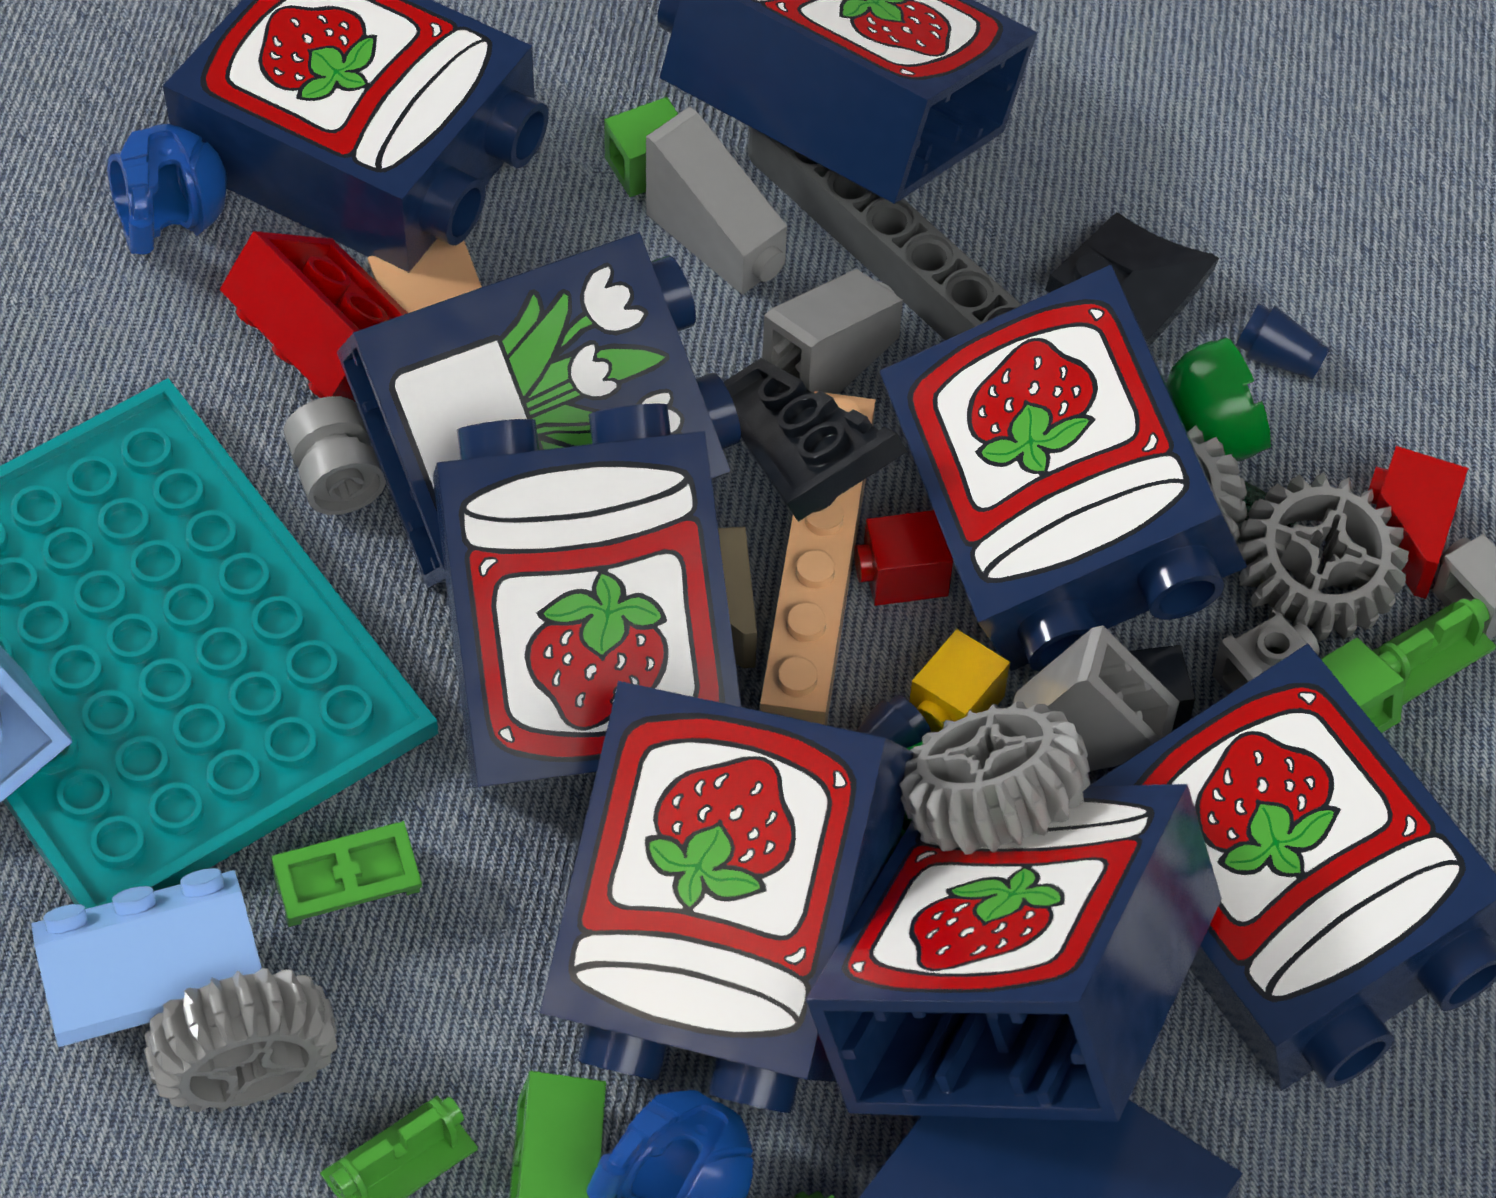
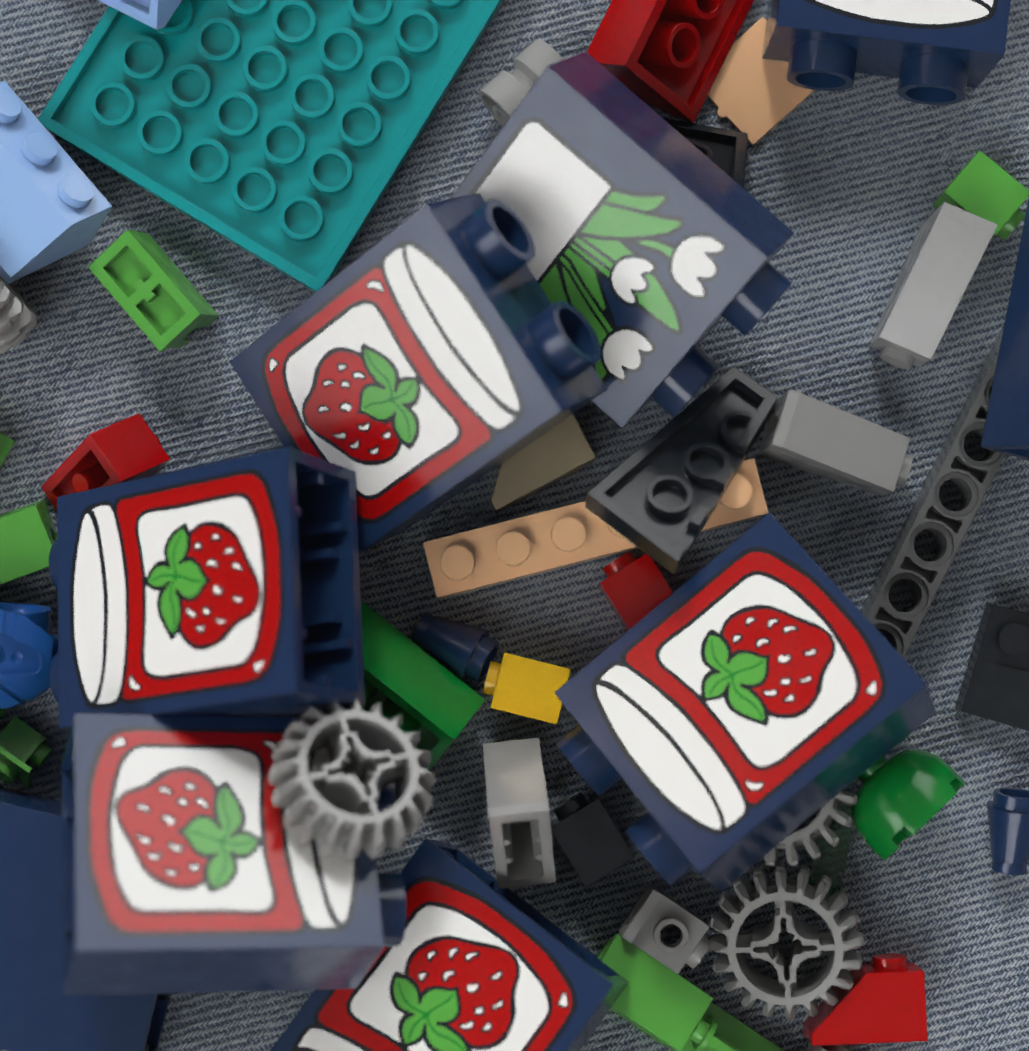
camera: 65 degrees right, 30 degrees up
(514, 983) = (108, 458): none -> red slope

